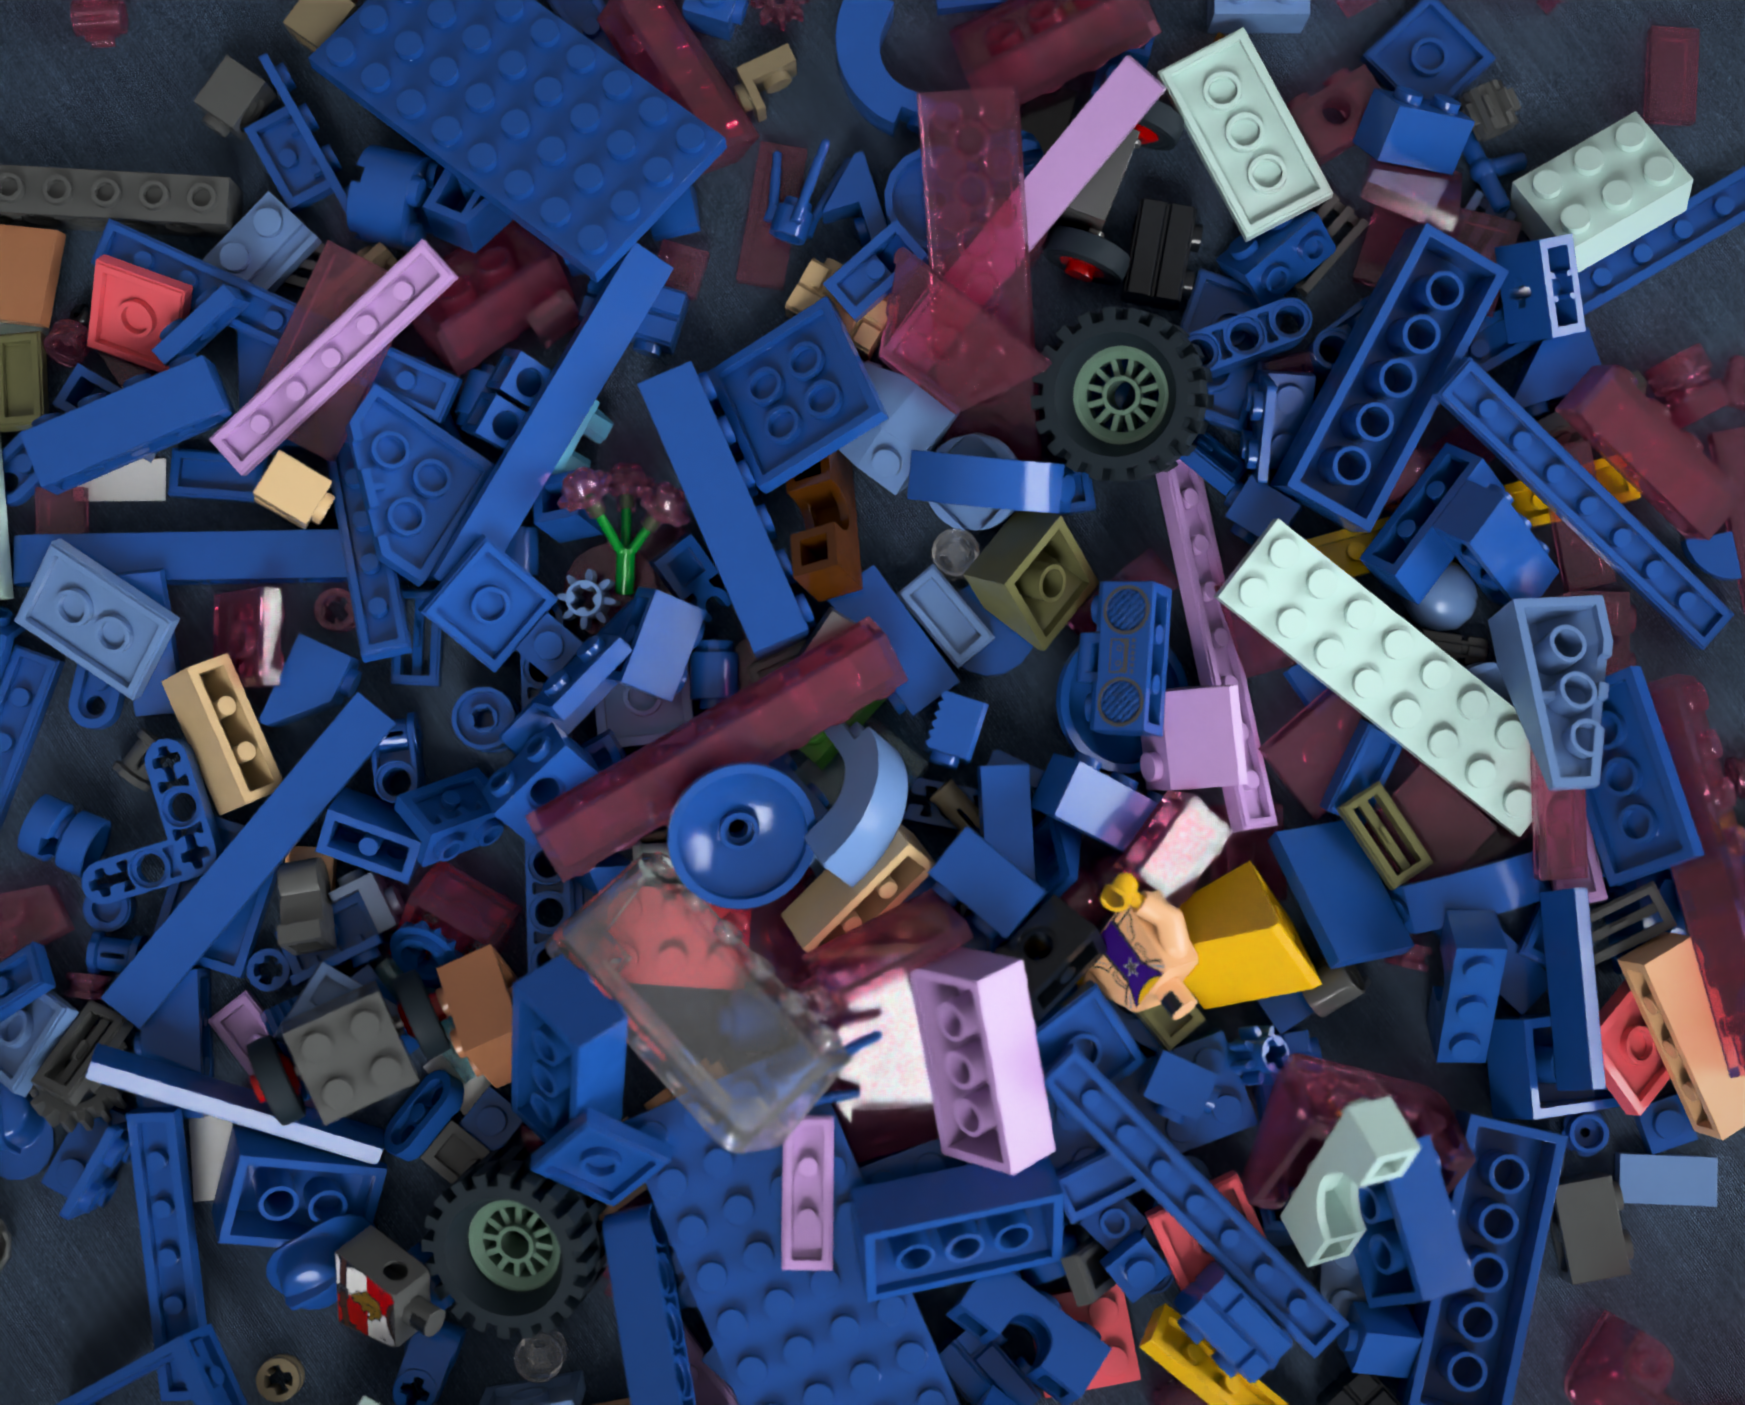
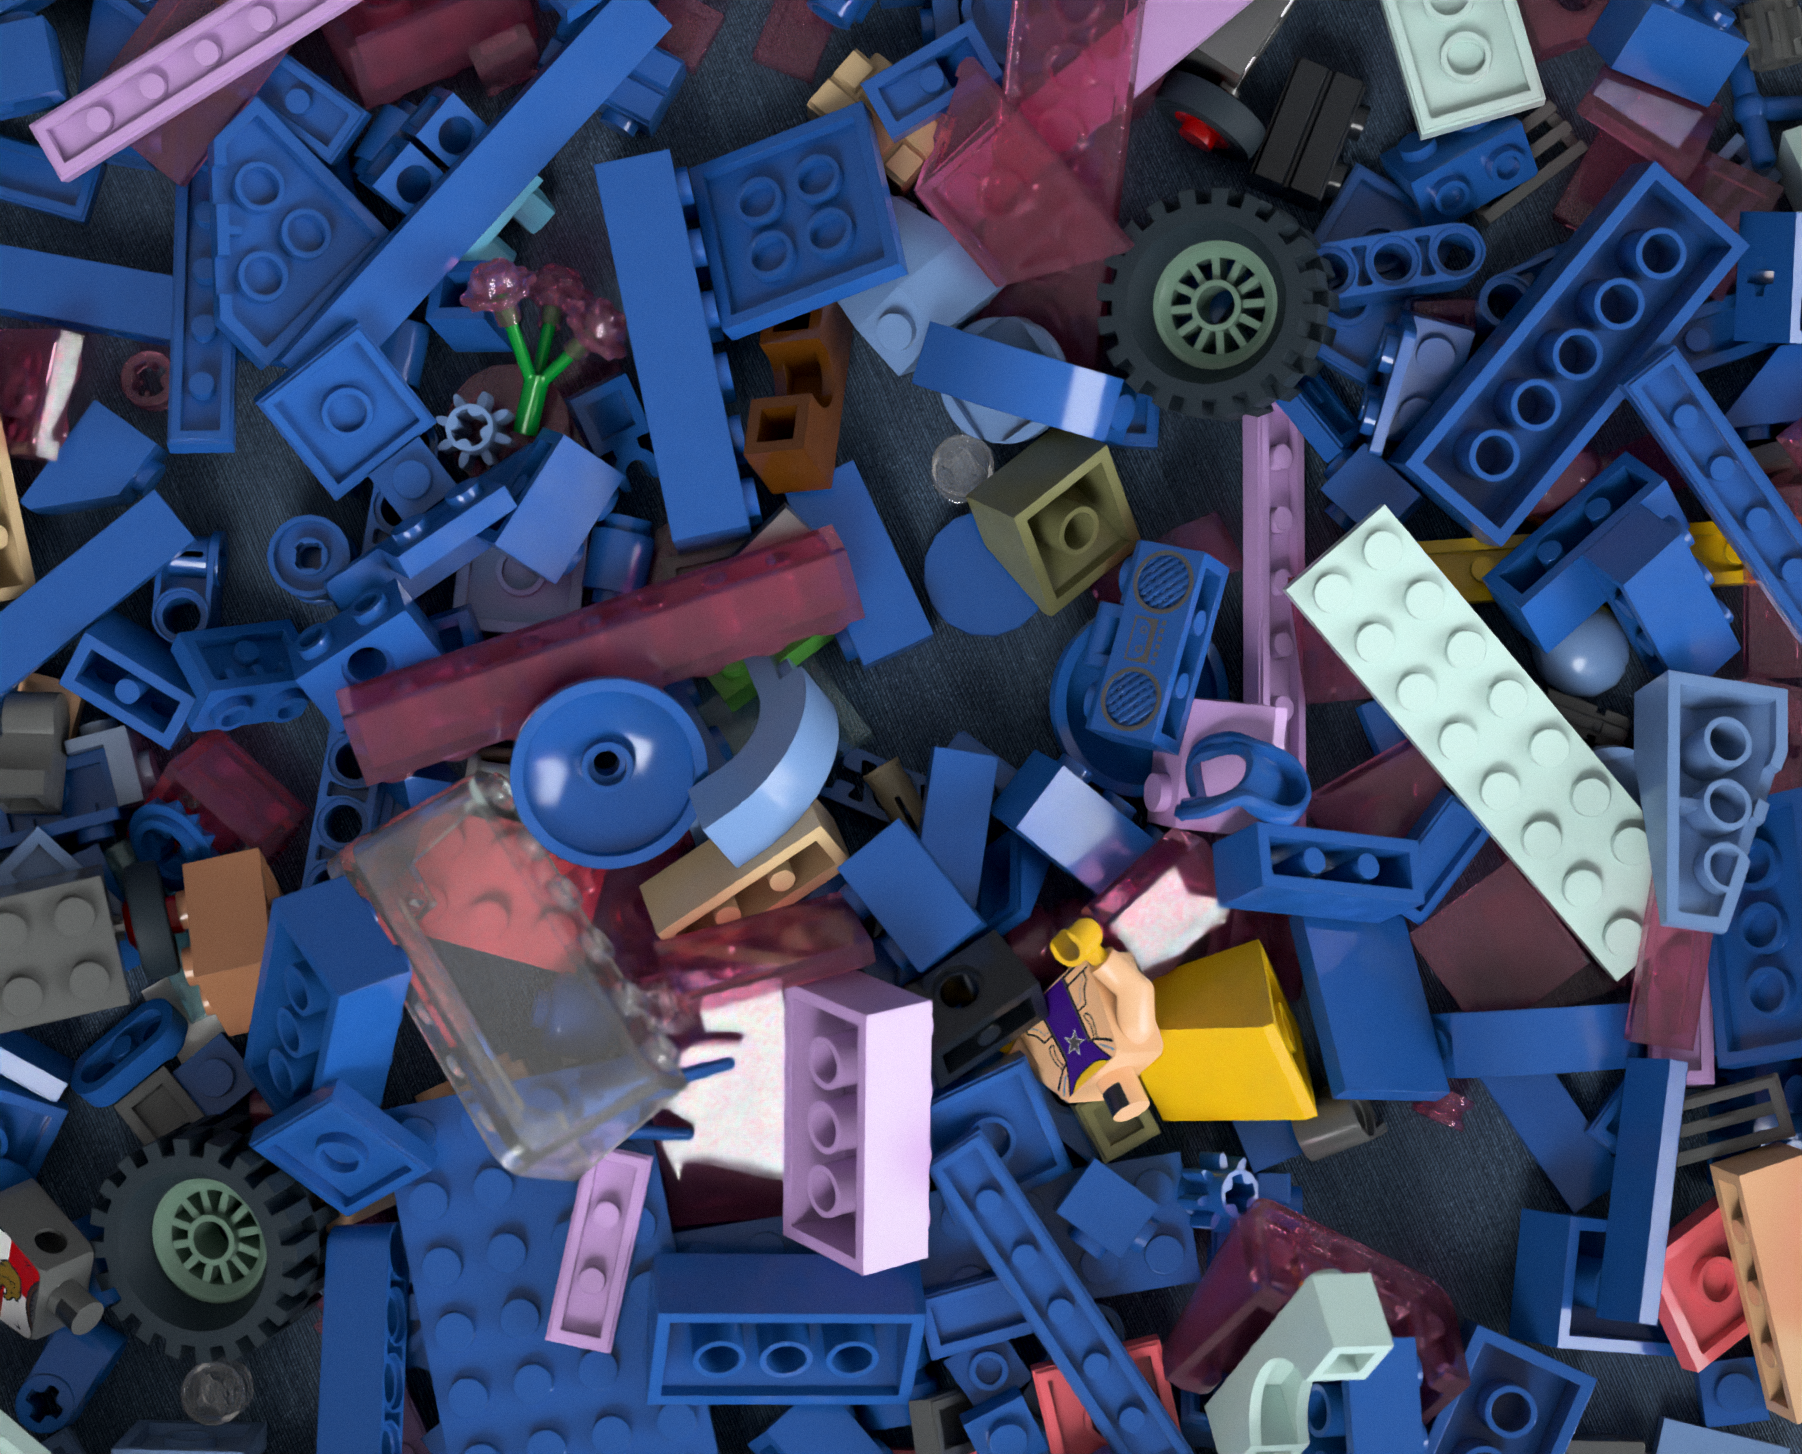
camera: 10 degrees right, 0 degrees up
(294, 492) = (125, 216): tan arch -> none
(436, 648) = (268, 457): blue tile -> none
(945, 616) = (932, 546): medium blue tile -> none
(954, 730) = (913, 694): blue brick -> none
(1239, 747) = (1271, 789): none -> blue piece
(1284, 803) = (1317, 873): none -> blue brick
(1368, 845) = (1422, 961): olive tile -> none
(1473, 966) = (1513, 1150): blue arch -> none
(1596, 1138) = (1641, 1386): blue plate -> none

